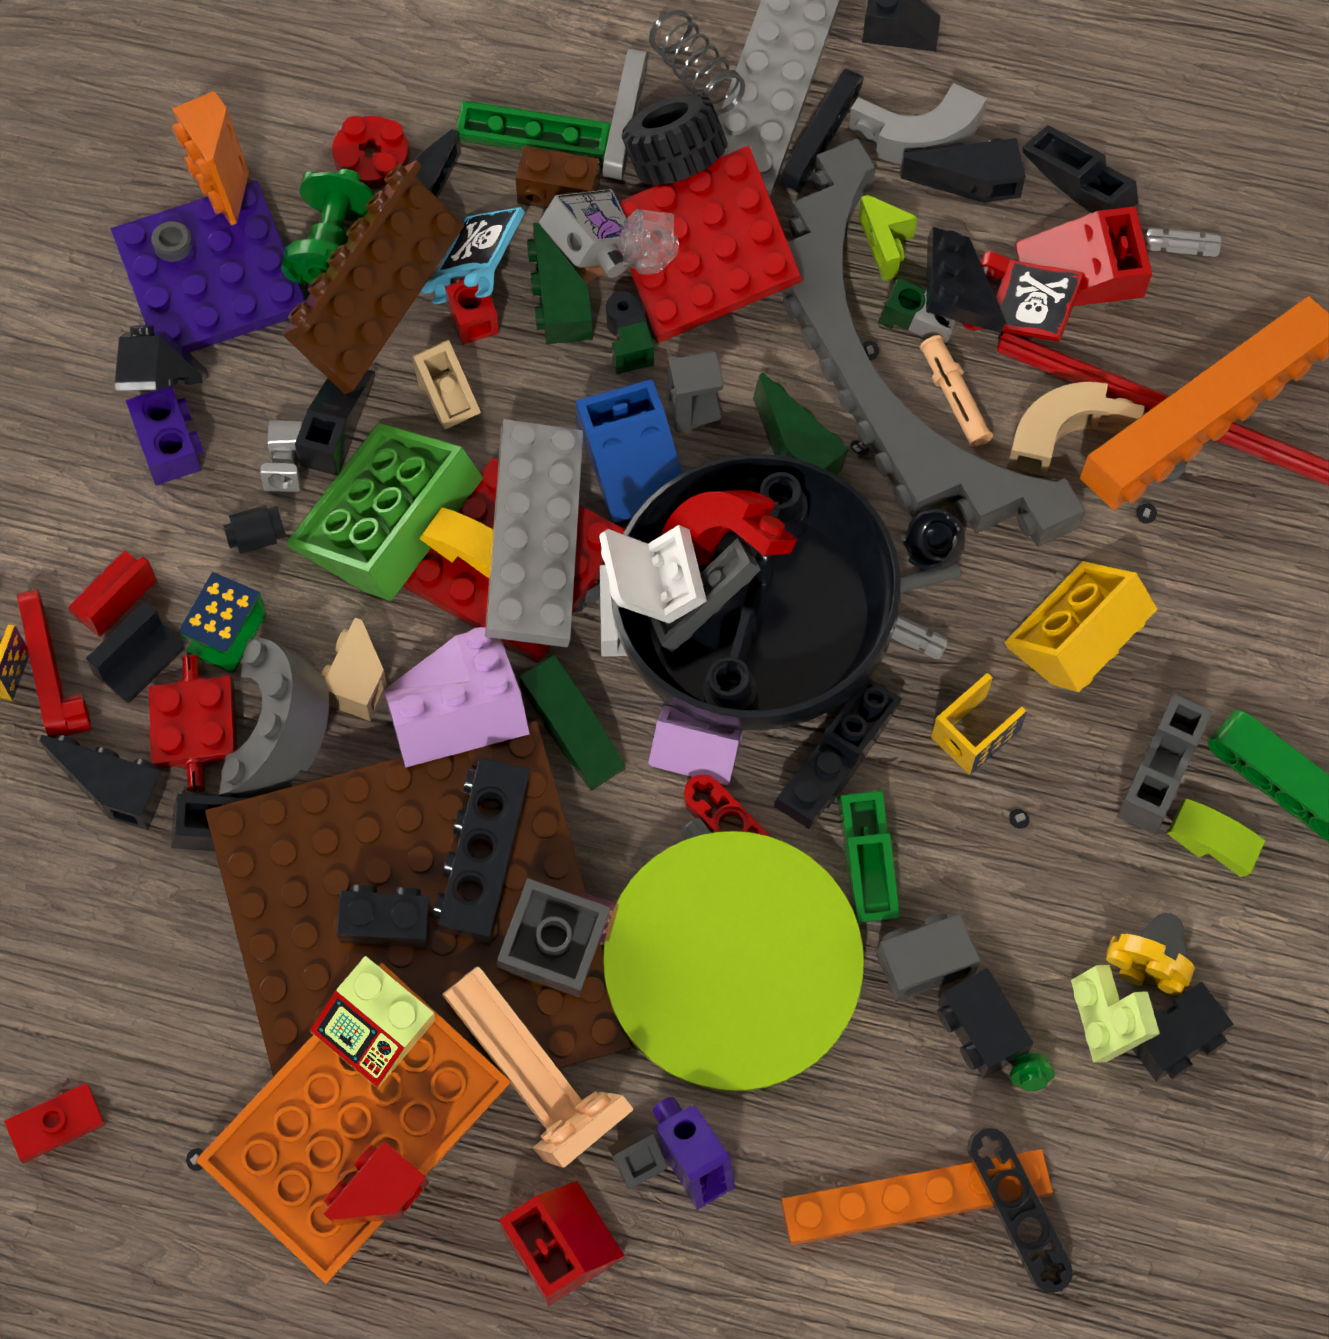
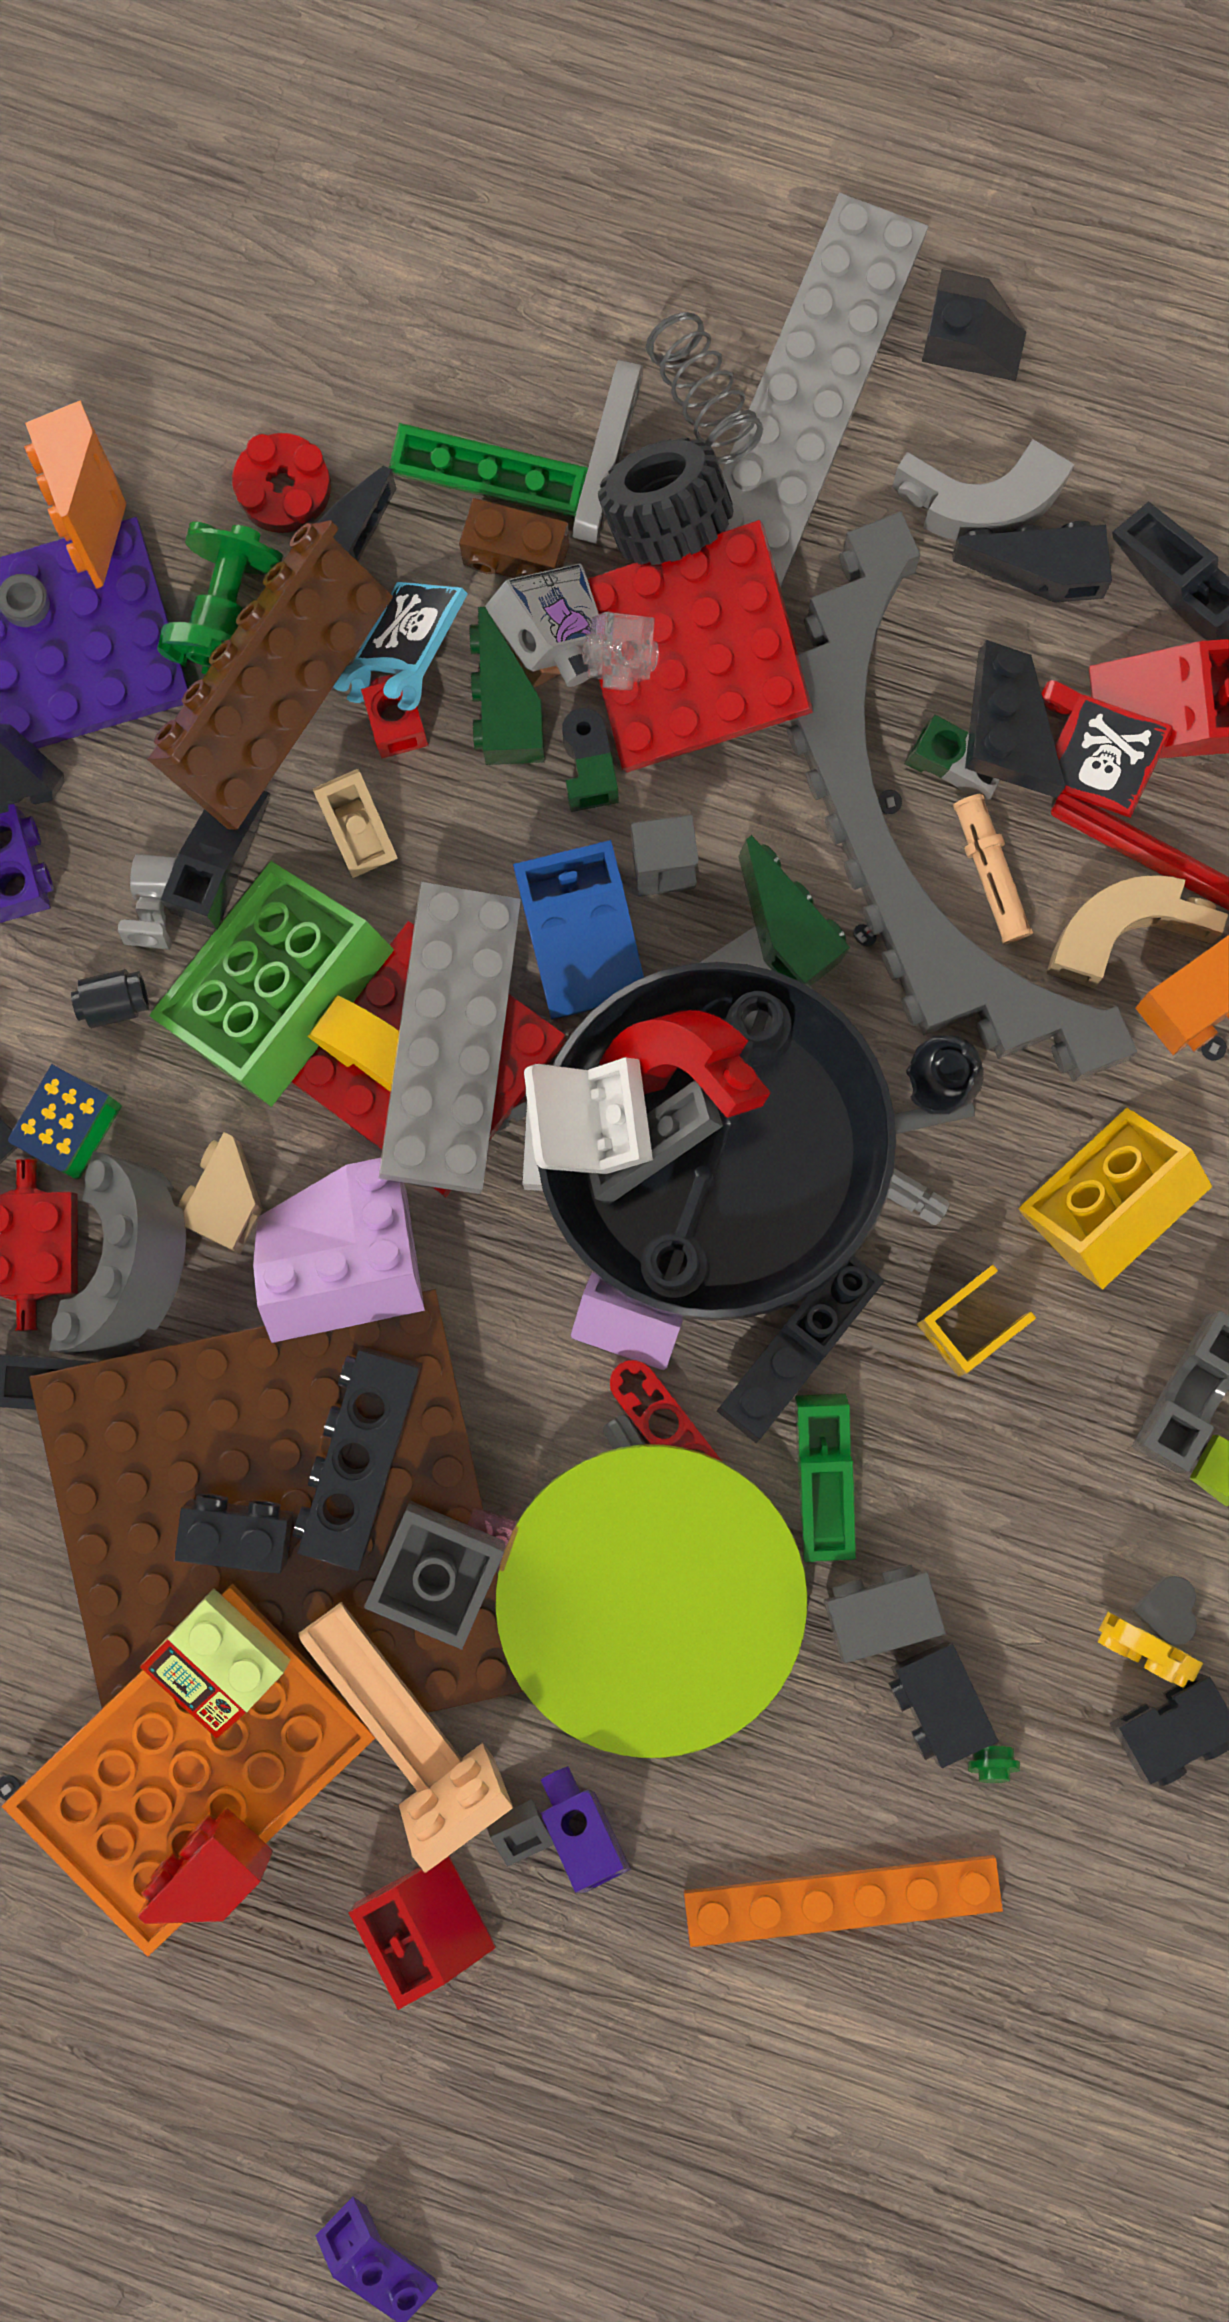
camera: 10 degrees right, 15 degrees up
(571, 722) = (480, 1282): dark green slope -> none
(822, 130) = (857, 490): black beam -> none
(884, 230) = (922, 634): lime slope -> none
(1019, 818) = (1012, 1438): black piece -> none
(1024, 1206) = (961, 1935): black beam -> none
(1111, 1023) = (1090, 1717): yellowish green plate -> none

